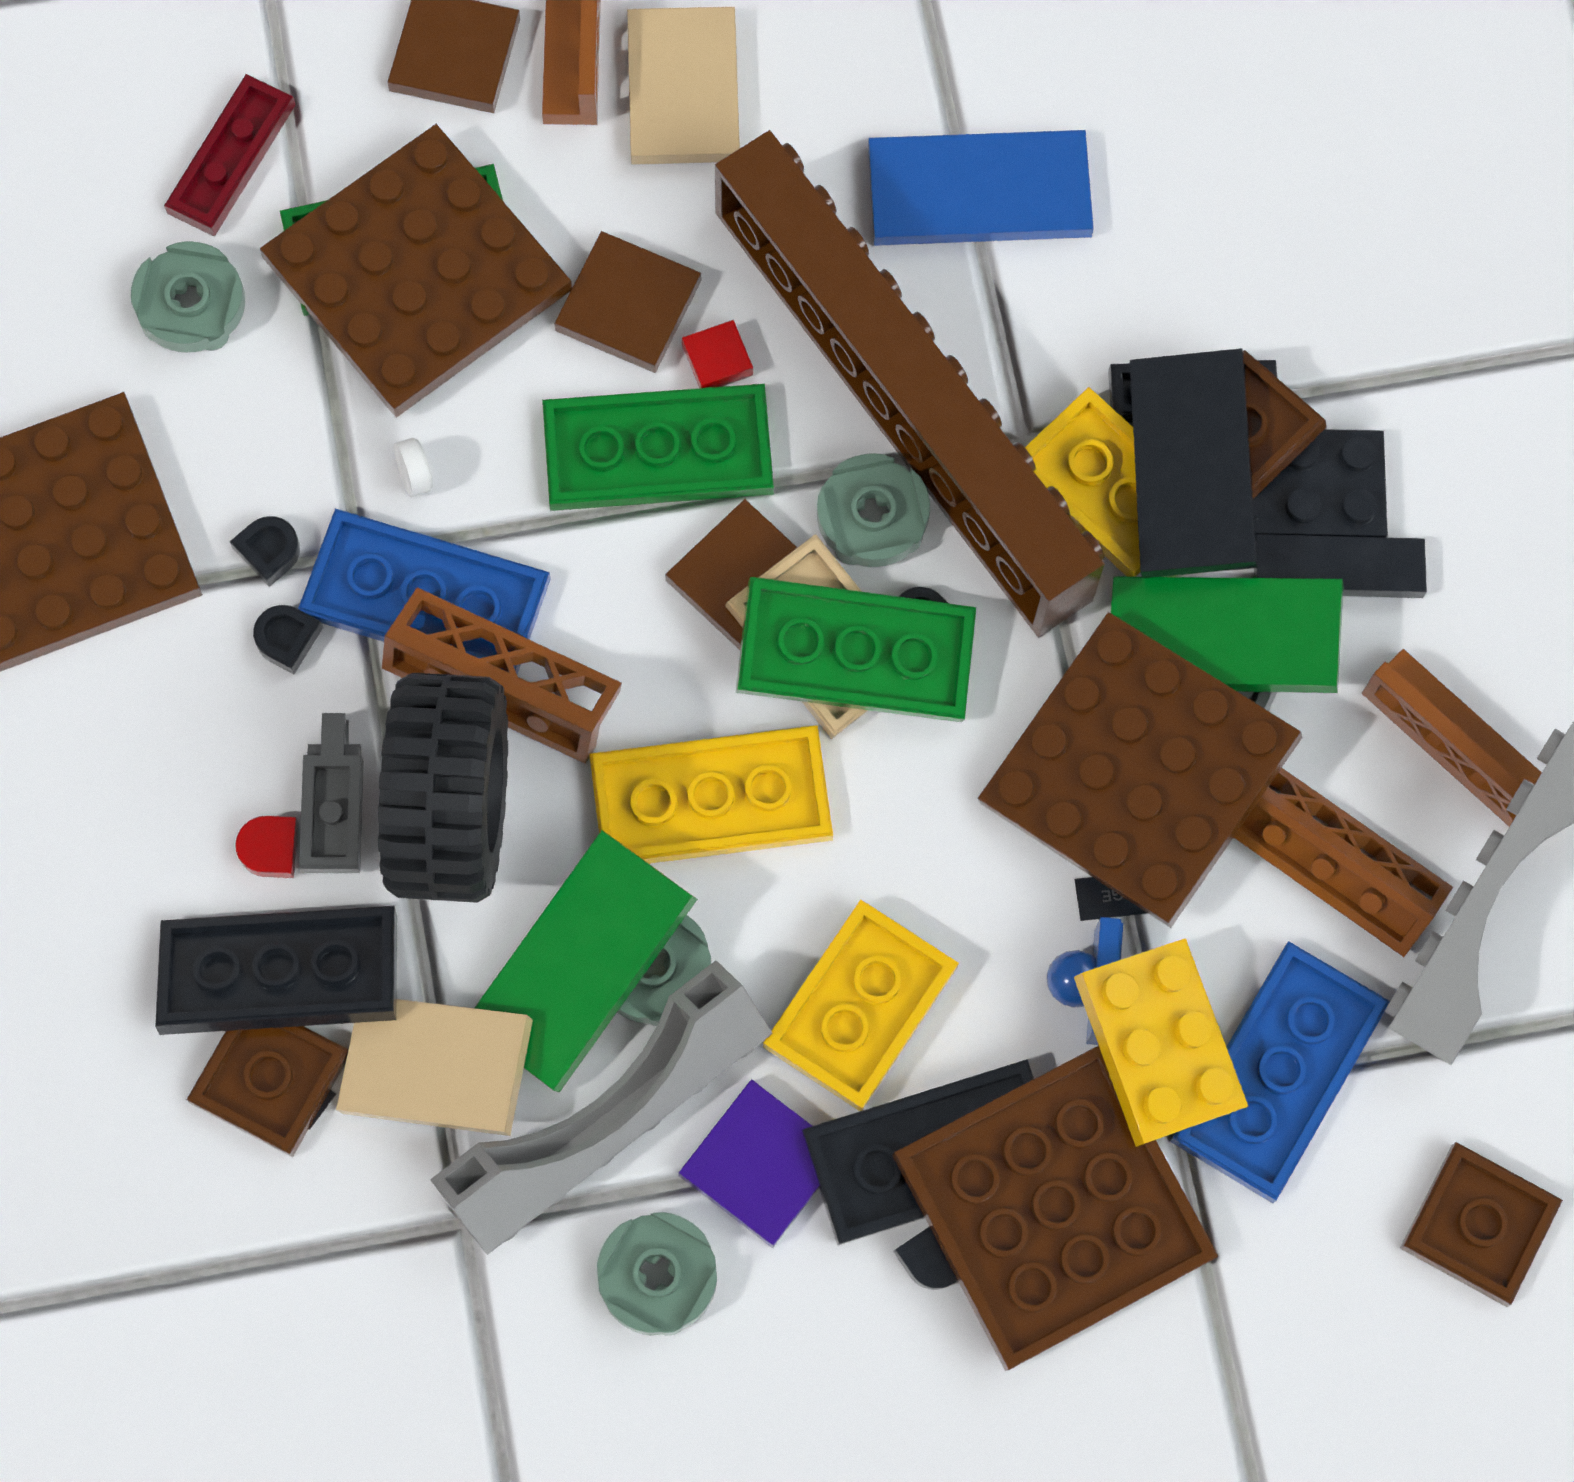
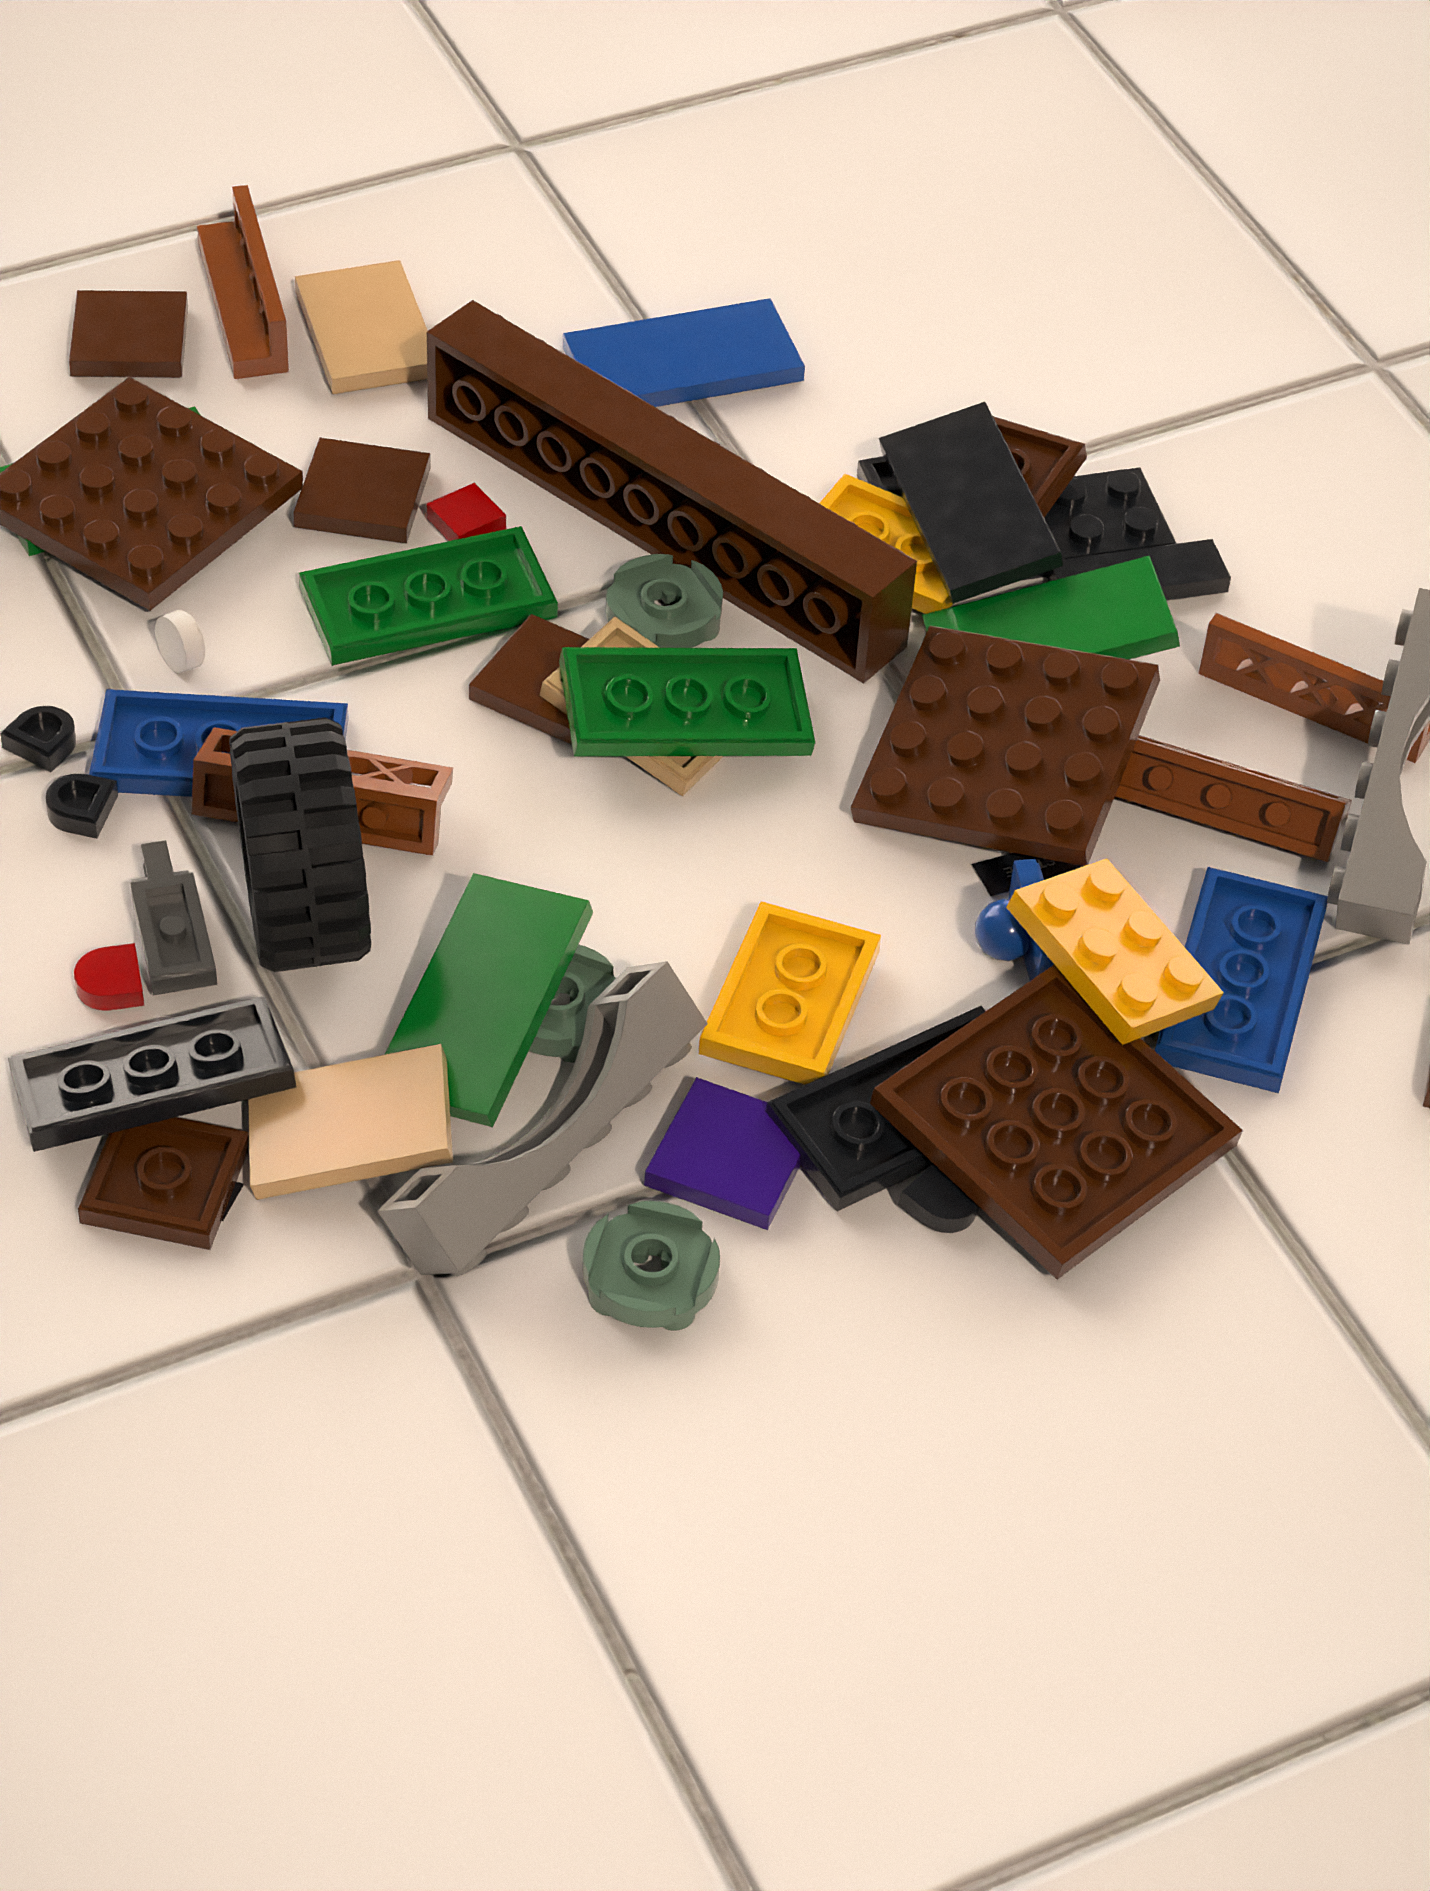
camera: 15 degrees left, 25 degrees down
(714, 795) = (586, 849): yellow tile -> none

